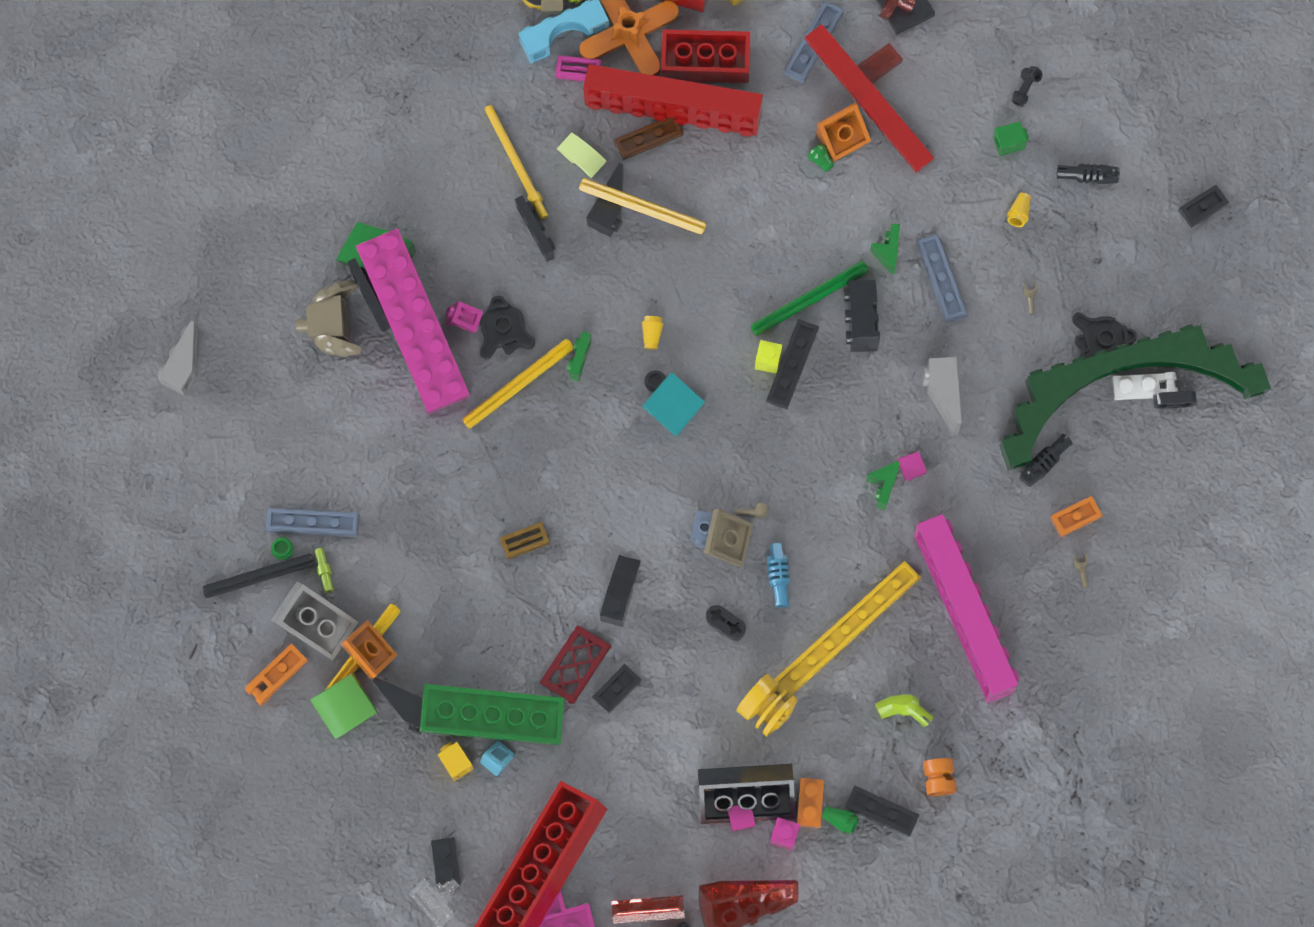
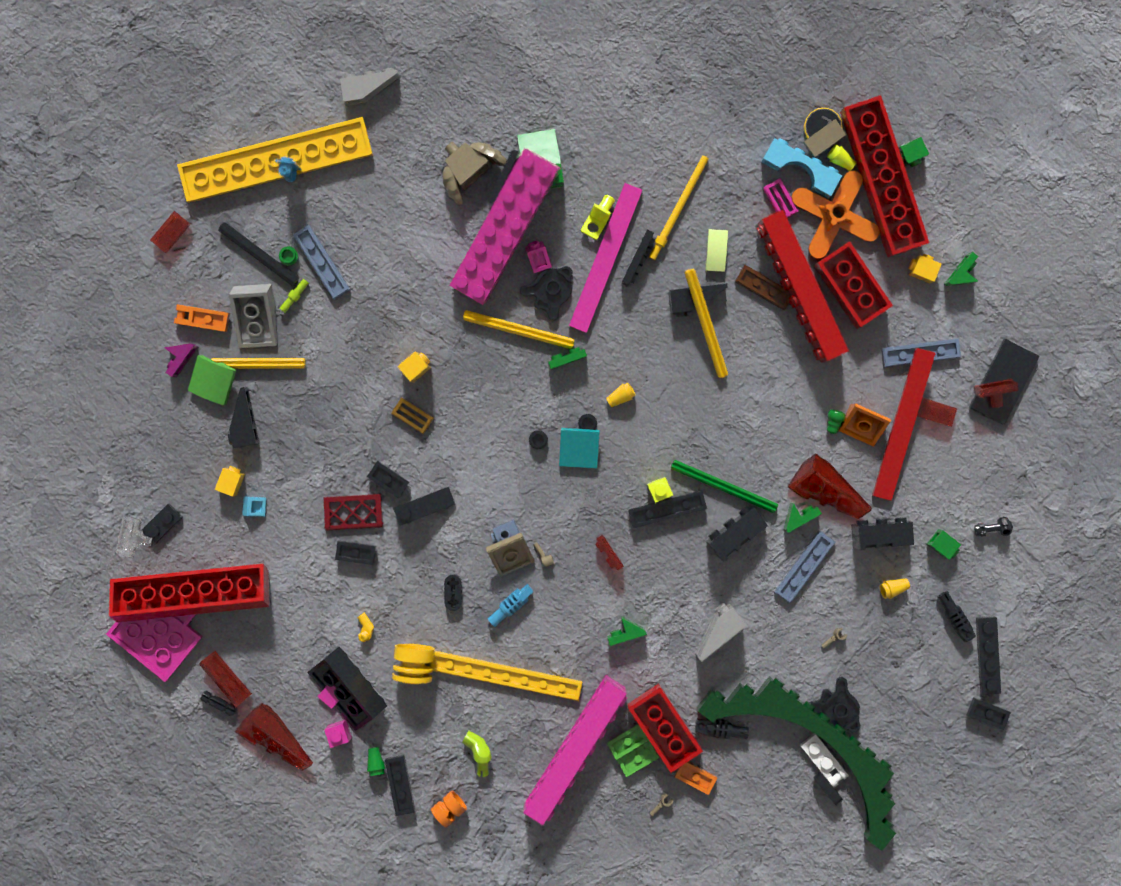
camera: 55 degrees right, 15 degrees up
(171, 644) = (170, 232): none -> clear red plate
(182, 496) = (257, 163): none -> yellow plate
(200, 479) = (288, 168): none -> dark azure hinge
(294, 717) = (183, 354): none -> magenta slope
(369, 649) = (258, 369): orange slope -> none
(469, 236) = (599, 215): none -> neon yellow bracket
(479, 499) = (415, 366): none -> yellow brick
(491, 714) = (275, 484): green plate -> none
(512, 259) = (605, 257): none -> dark pink tile
(568, 606) = (388, 479): none -> black plate
(637, 438) = (538, 439): none -> black plate
(700, 731) = (367, 628): none -> yellow arm
(803, 446) = (612, 559): none -> clear red plate
(810, 802) = (372, 733): orange plate -> none
(875, 206) = (825, 484): none -> clear red wedge
(912, 466) = (652, 641): dark pink tile -> none
(959, 185) = (882, 533): none -> black wedge
(1005, 509) = (664, 728): none -> red brick
(1008, 559) = (633, 750): none -> bright green slope
(1147, 170) = (988, 655): none -> black plate

